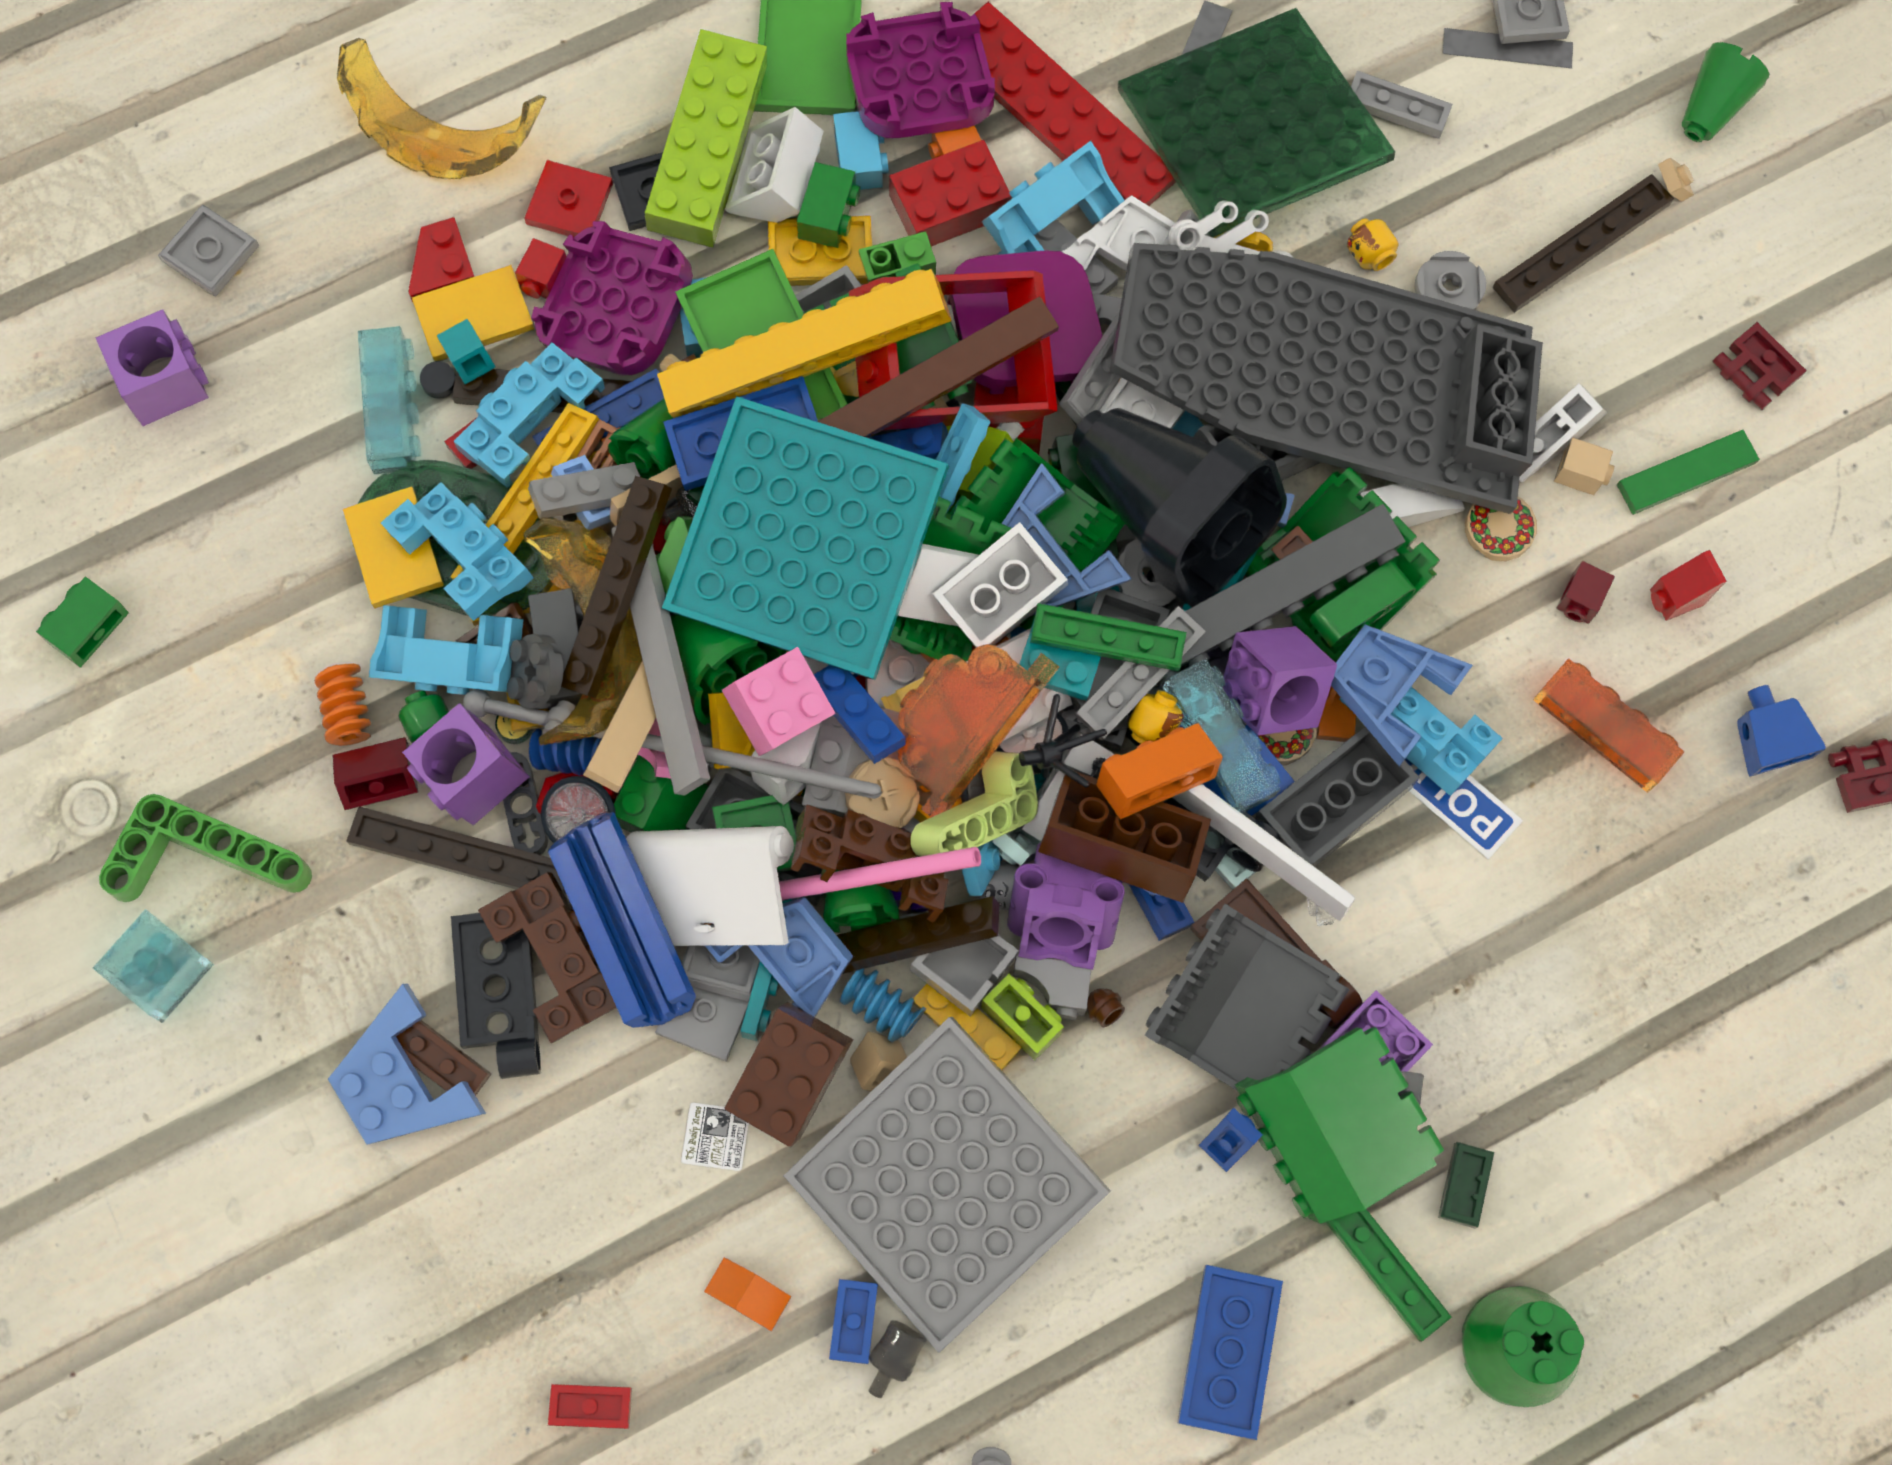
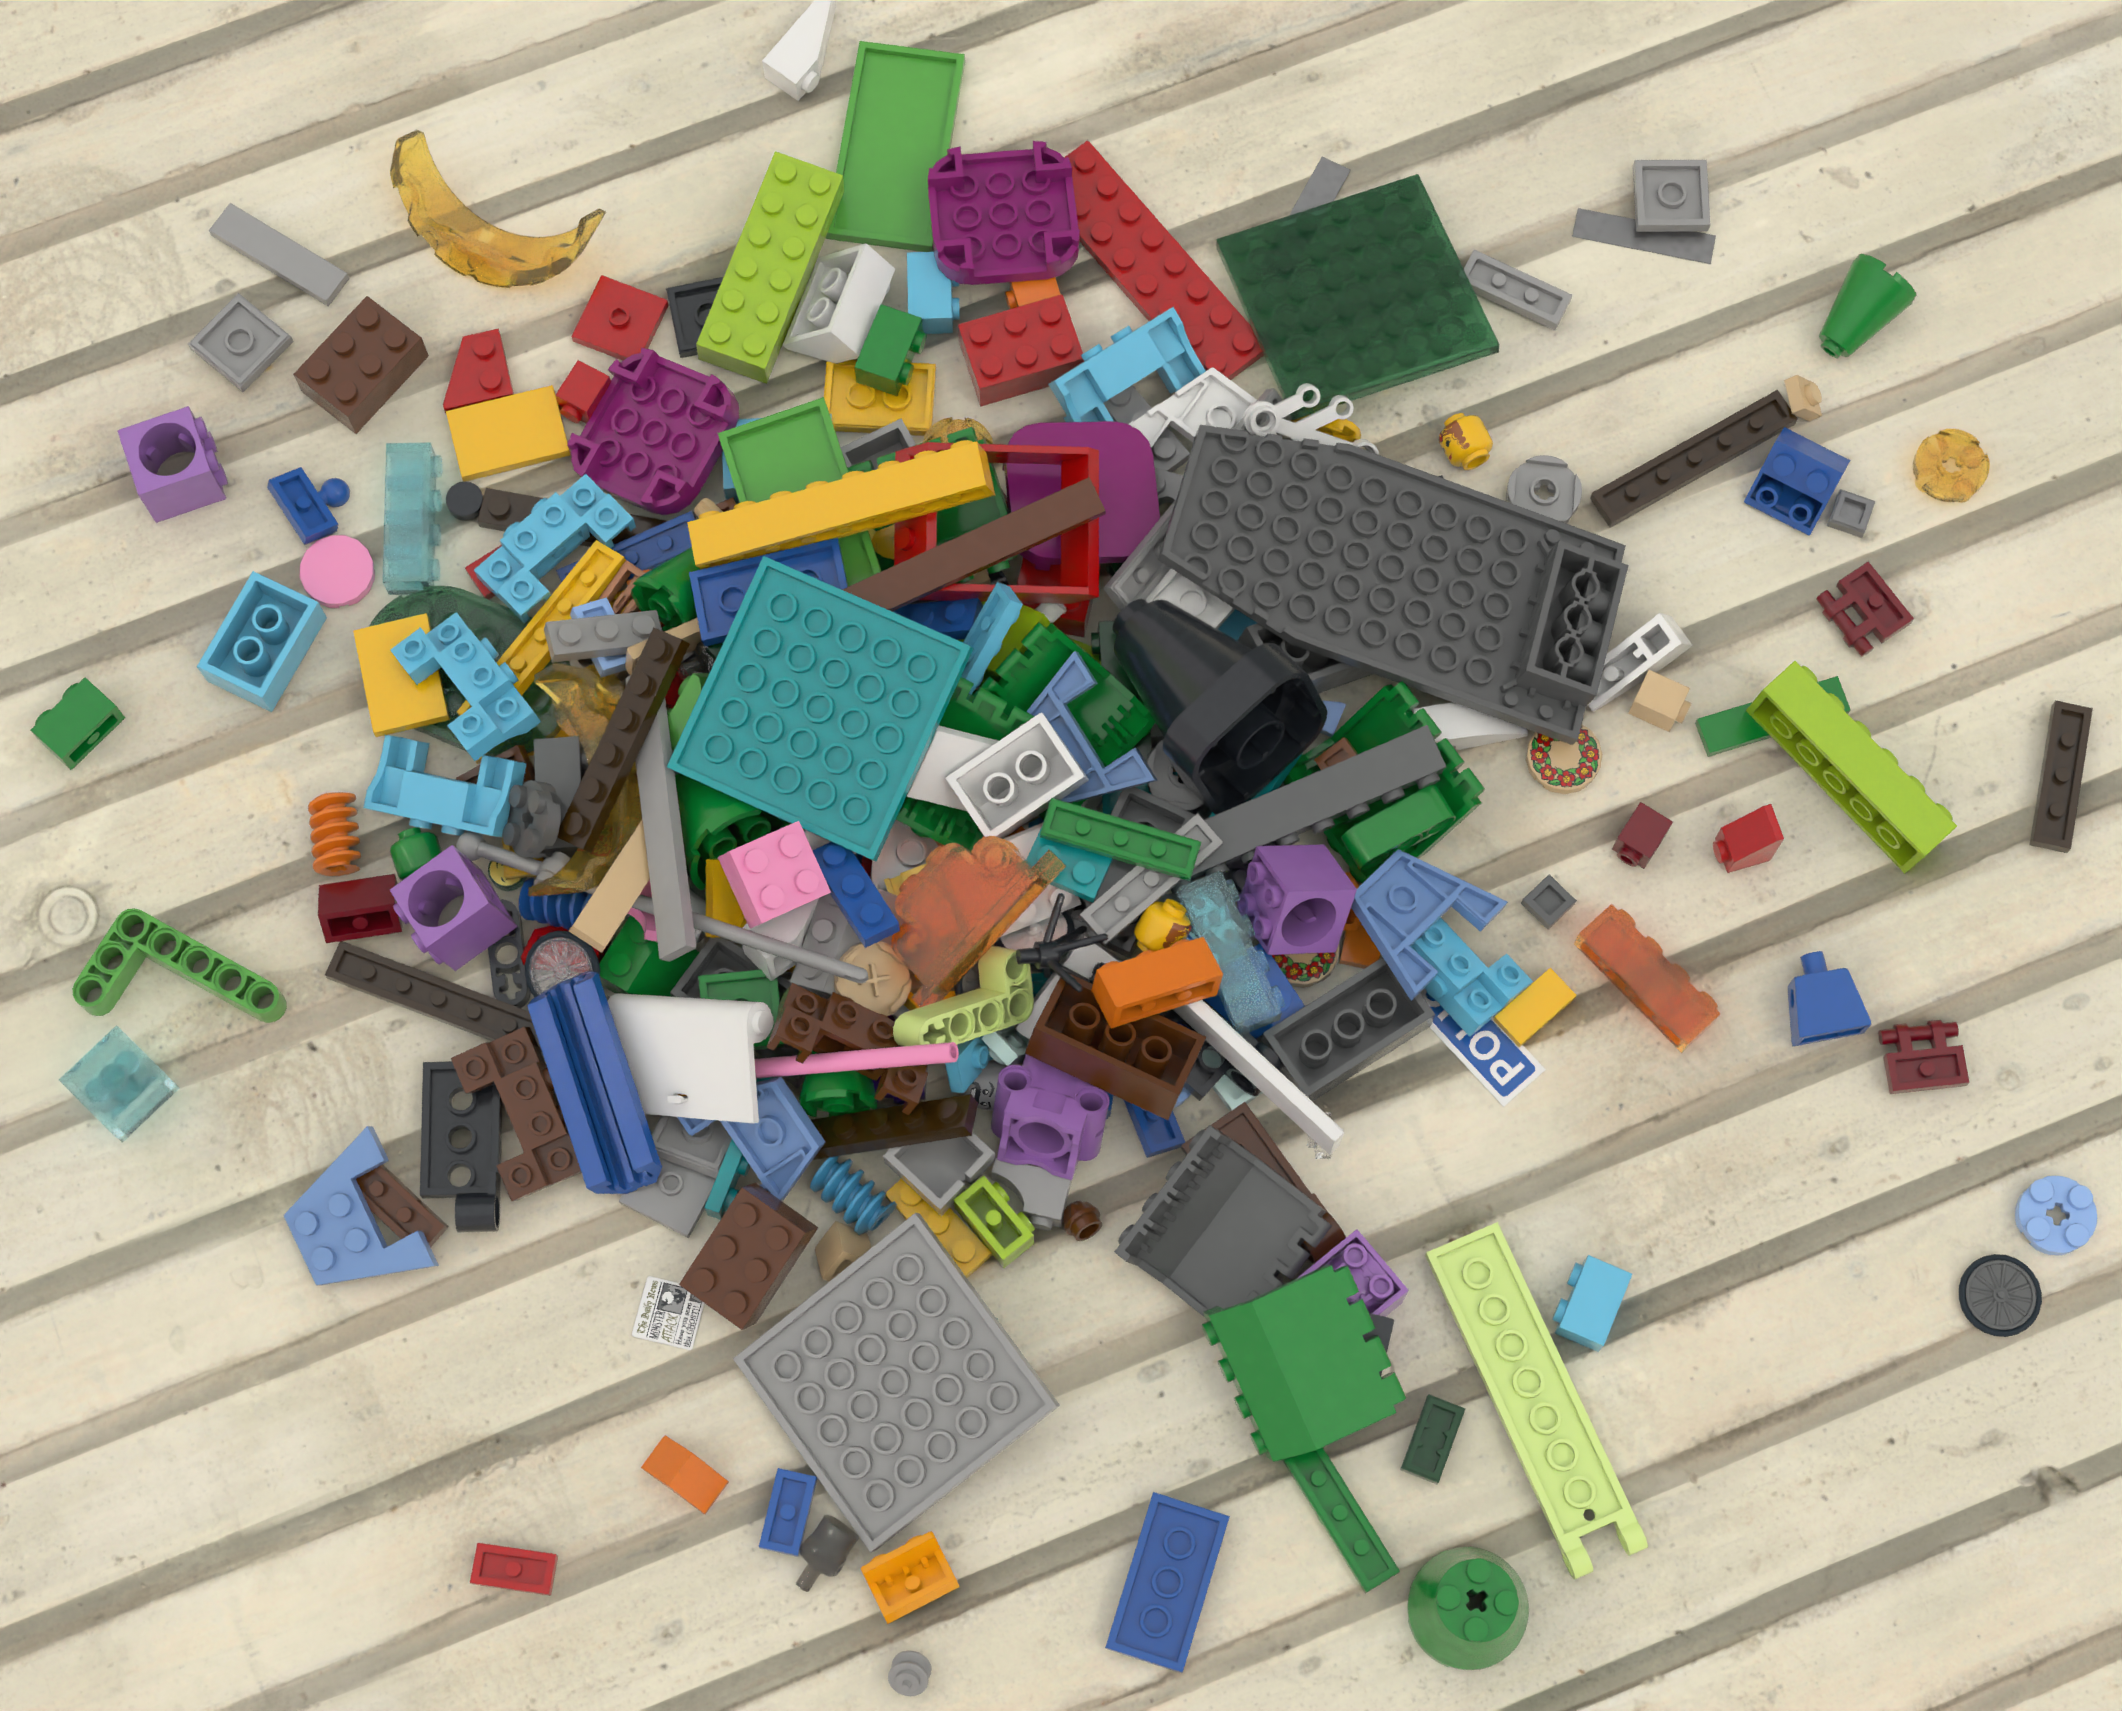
camera: 10 degrees right, 0 degrees up
(238, 166) = (279, 254): none -> light grey tile
(255, 527) = (262, 641): none -> medium azure brick
(287, 398) = (307, 507): none -> blue plate
(321, 456) = (337, 571): none -> bright pink tile
(326, 260) = (361, 364): none -> reddish brown brick
(466, 351) = (496, 475): teal brick -> none
(896, 255) = (954, 414): bright green slope -> none
(980, 1373) = (909, 1576): none -> light orange bracket
(1230, 1139) = (1192, 1367): blue plate -> none
(1506, 662) = (1548, 902): none -> dark grey plate
(1506, 762) = (1534, 1007): none -> yellow tile
(1557, 1133) = (1533, 1394): none -> yellowish green hinge
(1599, 1038) = (1592, 1302): none -> medium azure brick
(1681, 255) = (1796, 481): none -> blue slope
(1732, 281) = (1851, 513): none -> flat silver tile
(1774, 511) = (1851, 766): none -> lime brick
(1810, 246) = (1968, 456): none -> clear yellow plate

